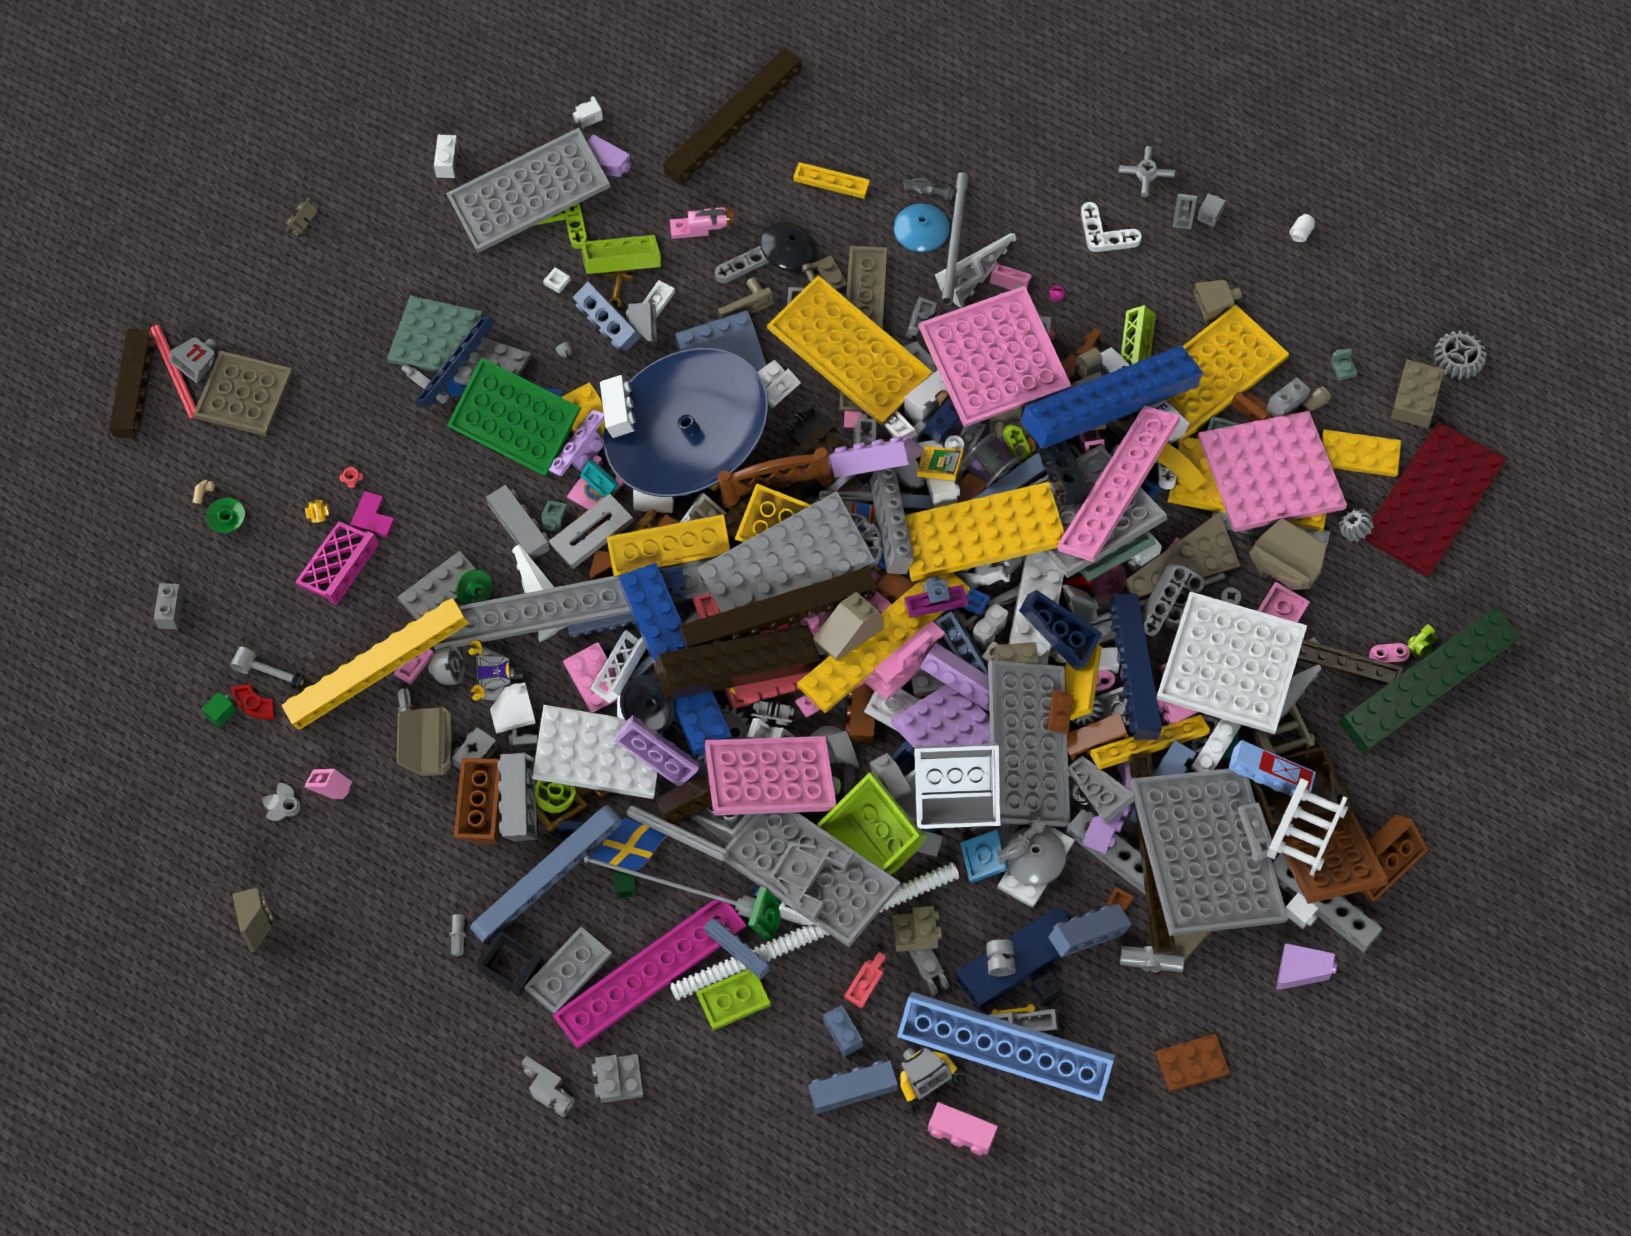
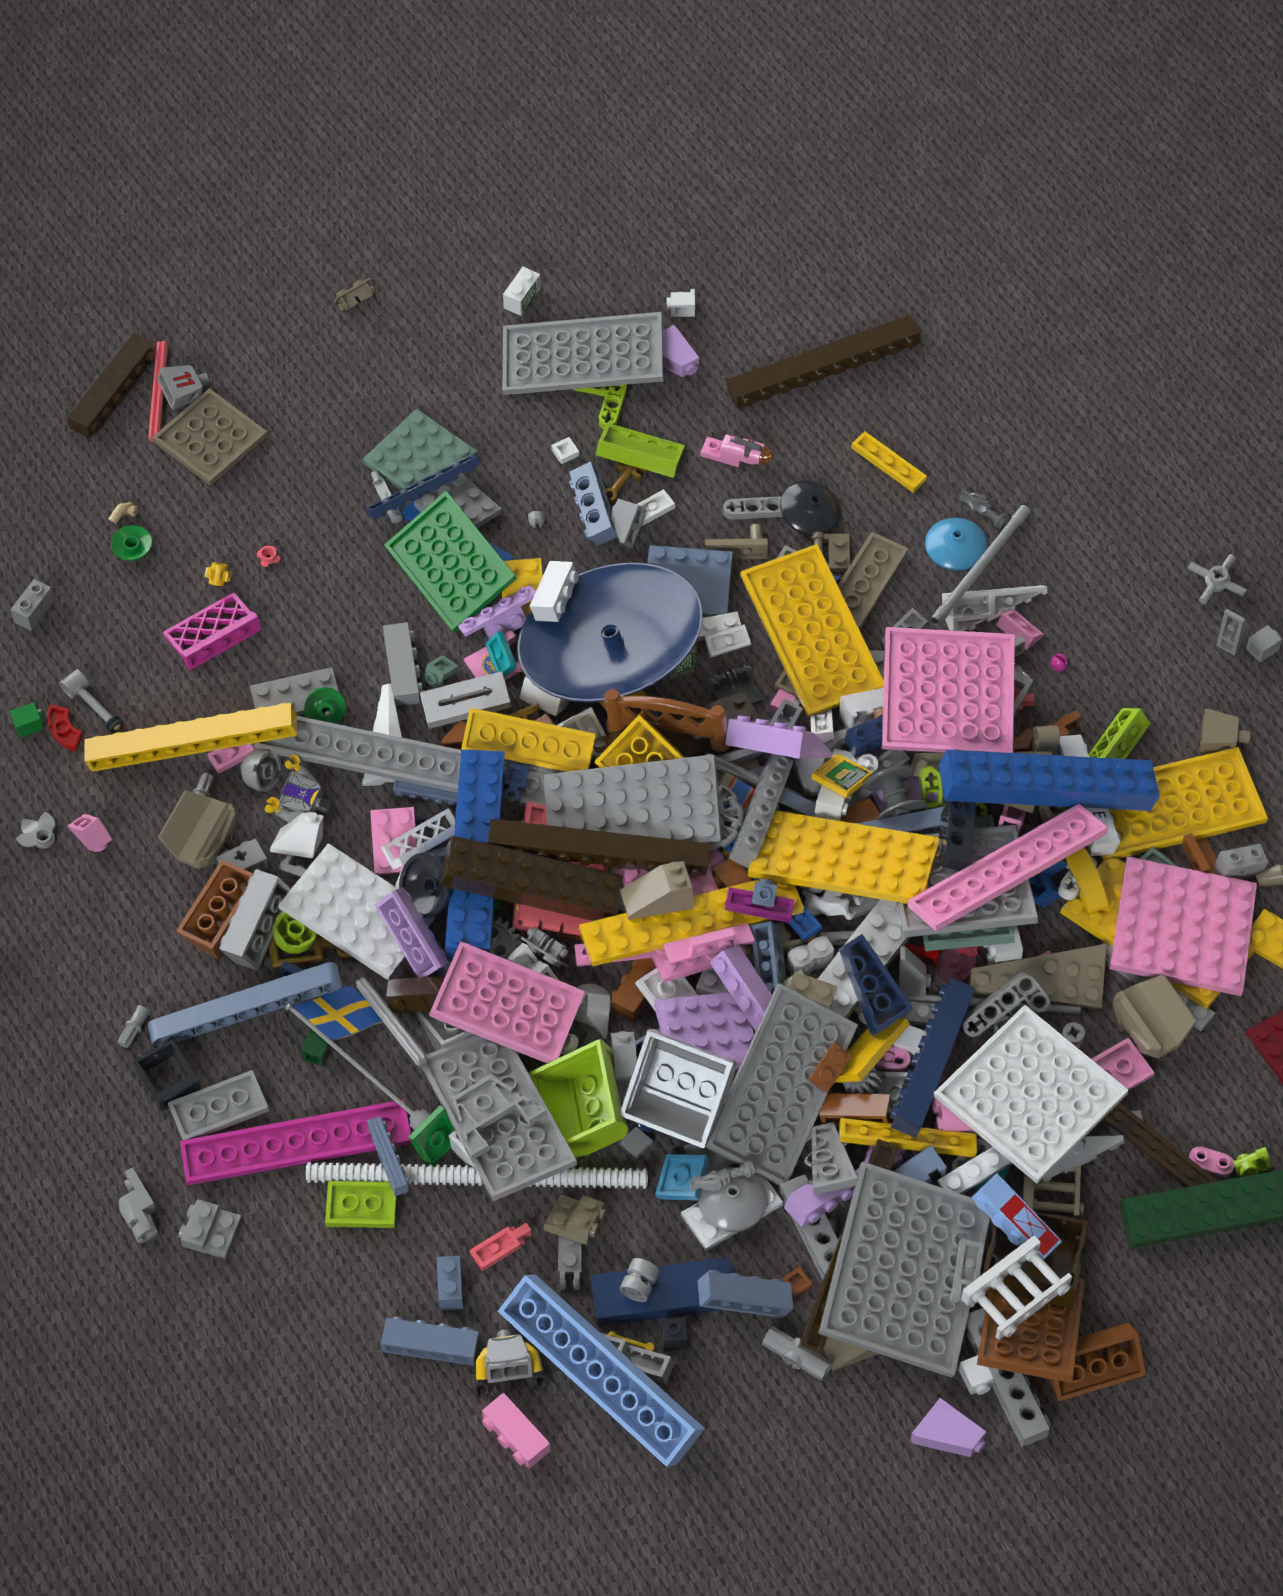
camera: 25 degrees right, 5 degrees down
(367, 516) = (264, 598): dark pink tile -> none
(1103, 237) = (1137, 627): white beam -> none
(1192, 1063) = (783, 1474): dark orange plate -> none
(1356, 525) = (1244, 1017): light grey gear -> none

